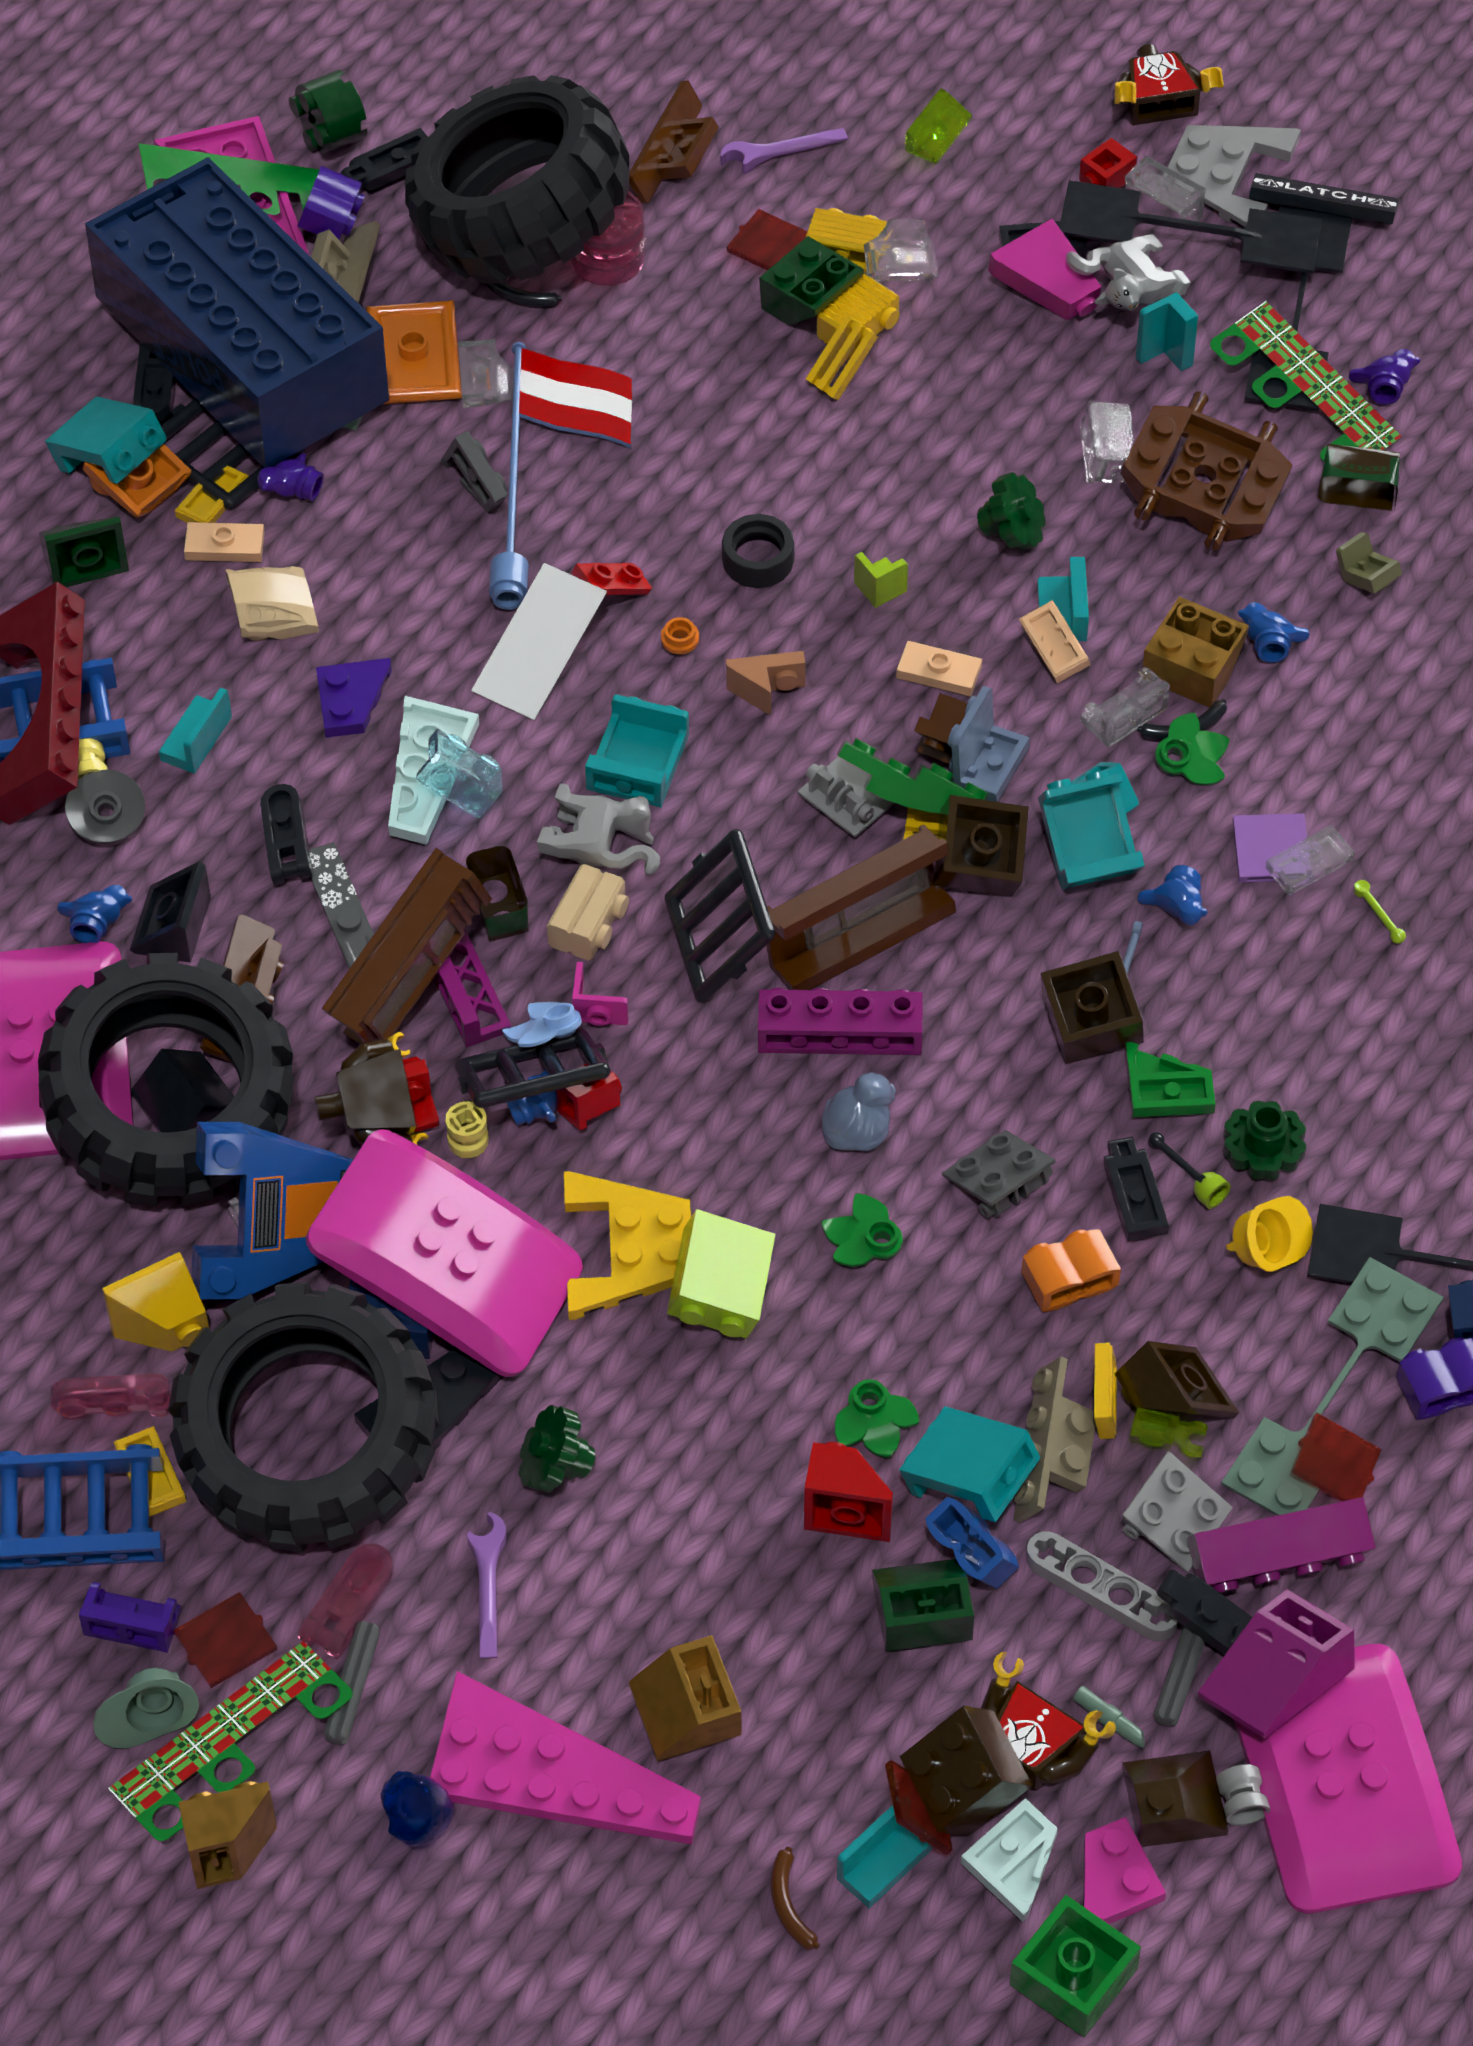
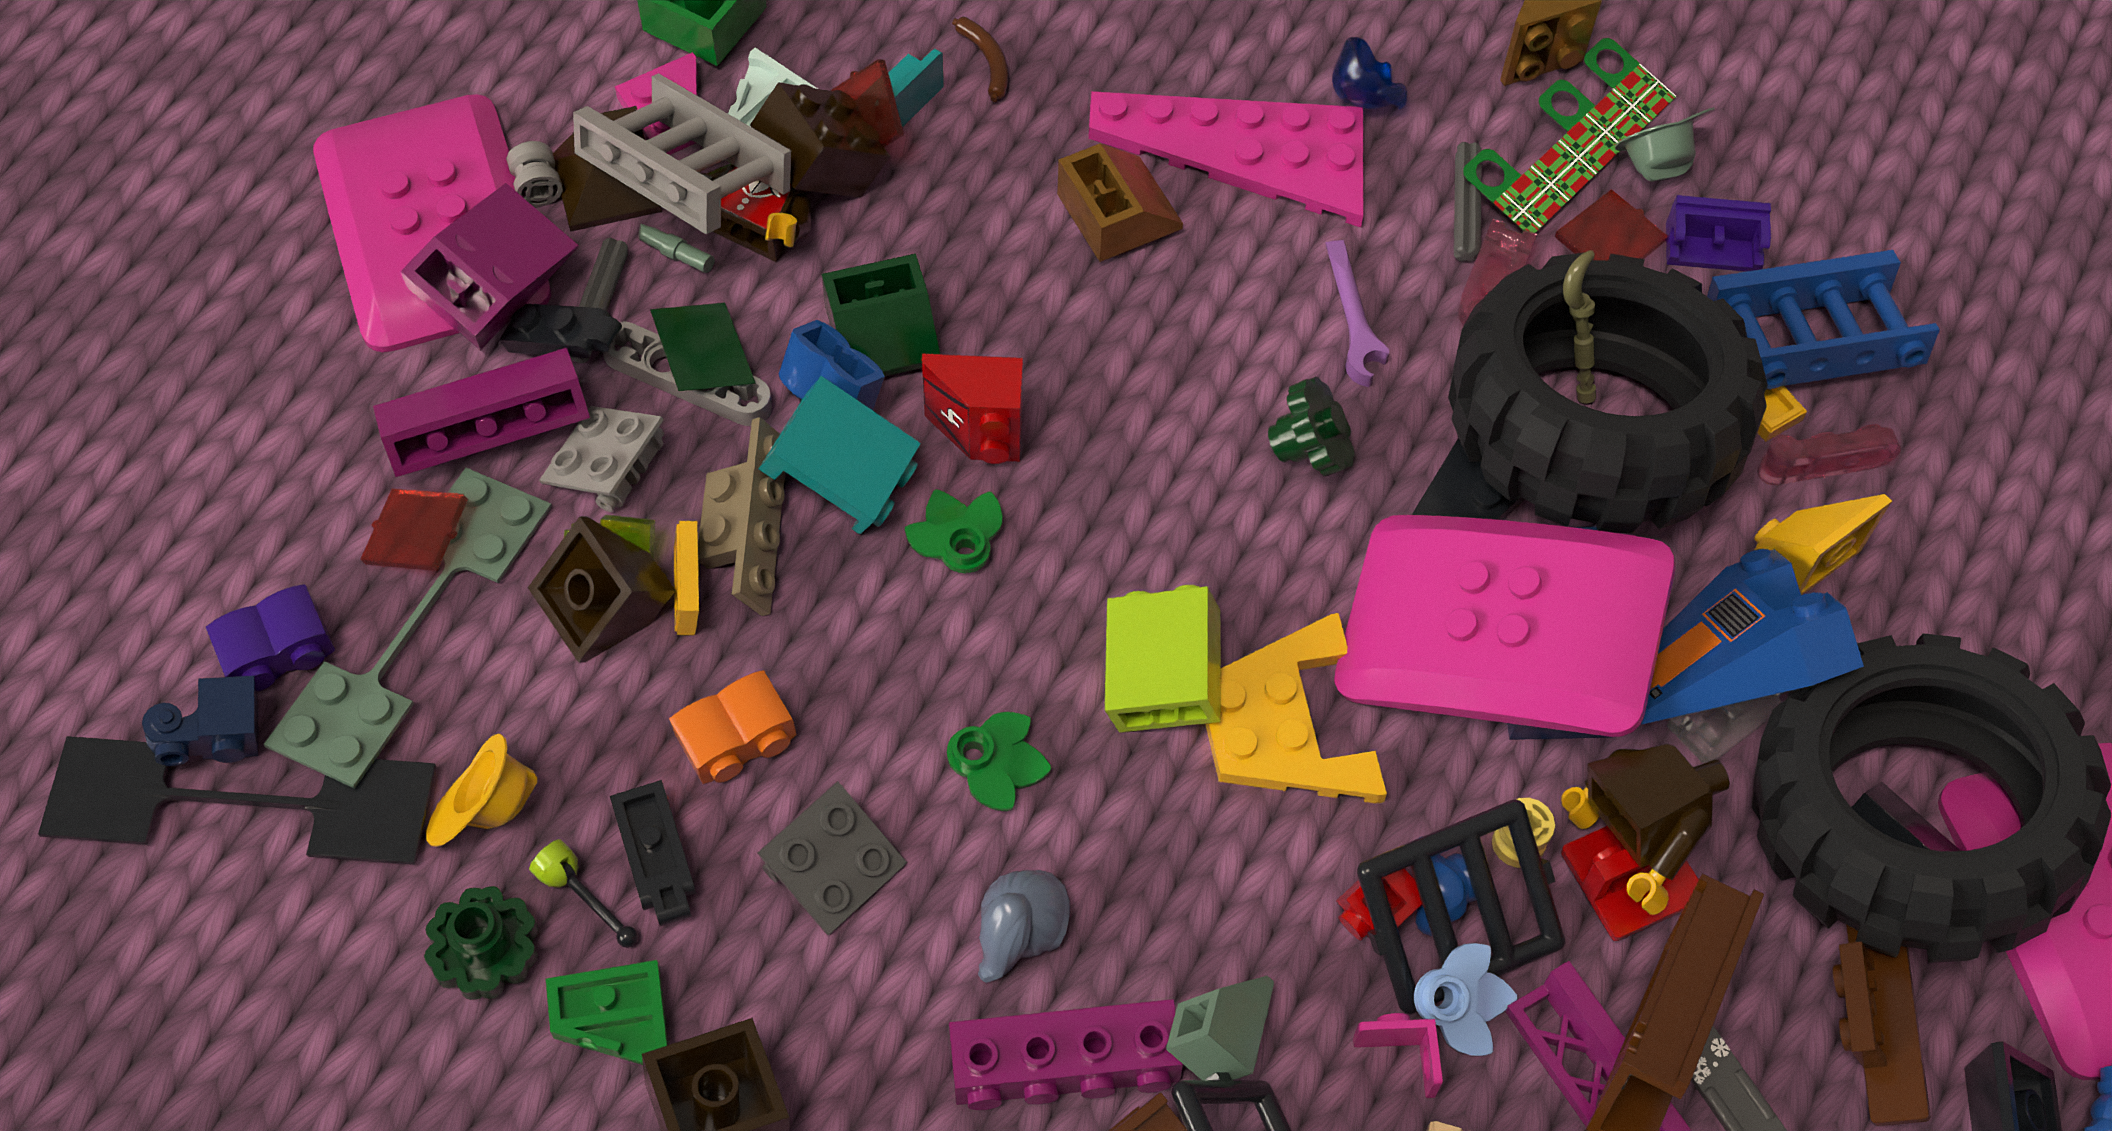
camera: 170 degrees right, 5 degrees up
(310, 1464) = (1581, 308): none -> olive piece
(724, 1012) = (1222, 1029): none -> sand green slope
(1086, 1599) = (702, 346): none -> dark green sticker
(1108, 1696) = (675, 182): none -> light grey fence

